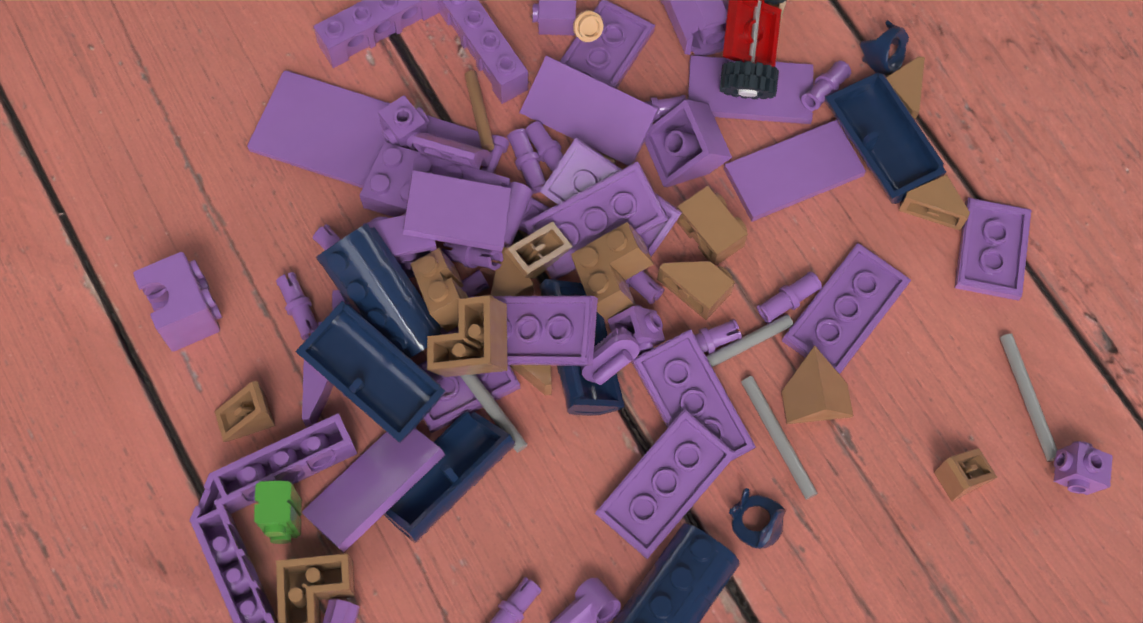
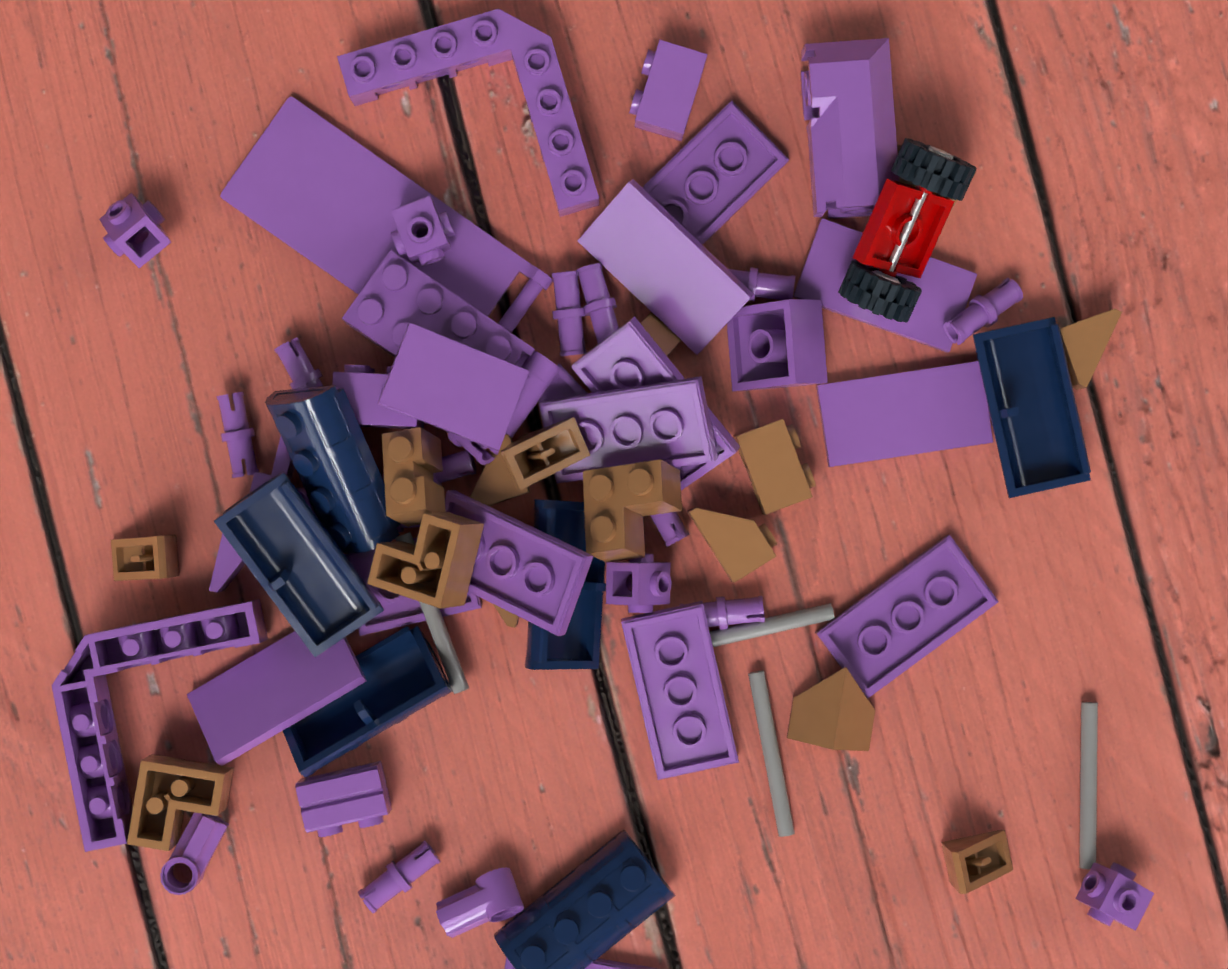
camera: 20 degrees right, 20 degrees up
(180, 300) = (103, 398): medium lavender piece -> none
(195, 175) = (134, 230): none -> medium lavender brick
(278, 510) = (156, 697): bright green brick -> none
(450, 558) = (344, 798): none -> medium lavender brick
(452, 150) = (473, 288): medium lavender slope -> none
(479, 110) = (525, 228): medium nougat bar -> none
(588, 26) = (698, 146): light nougat plate -> none
(611, 356) = (599, 613): medium lavender piece -> none
(665, 484) = (618, 778): medium lavender tile -> none
(769, 533) = (711, 871): dark blue piece -> none
(789, 297) = (840, 584): medium lavender pin -> none
(877, 51) = (1067, 287): dark blue piece -> none
(937, 202) = (1069, 511): medium nougat slope -> none
(993, 249) = (1117, 585): medium lavender tile -> none

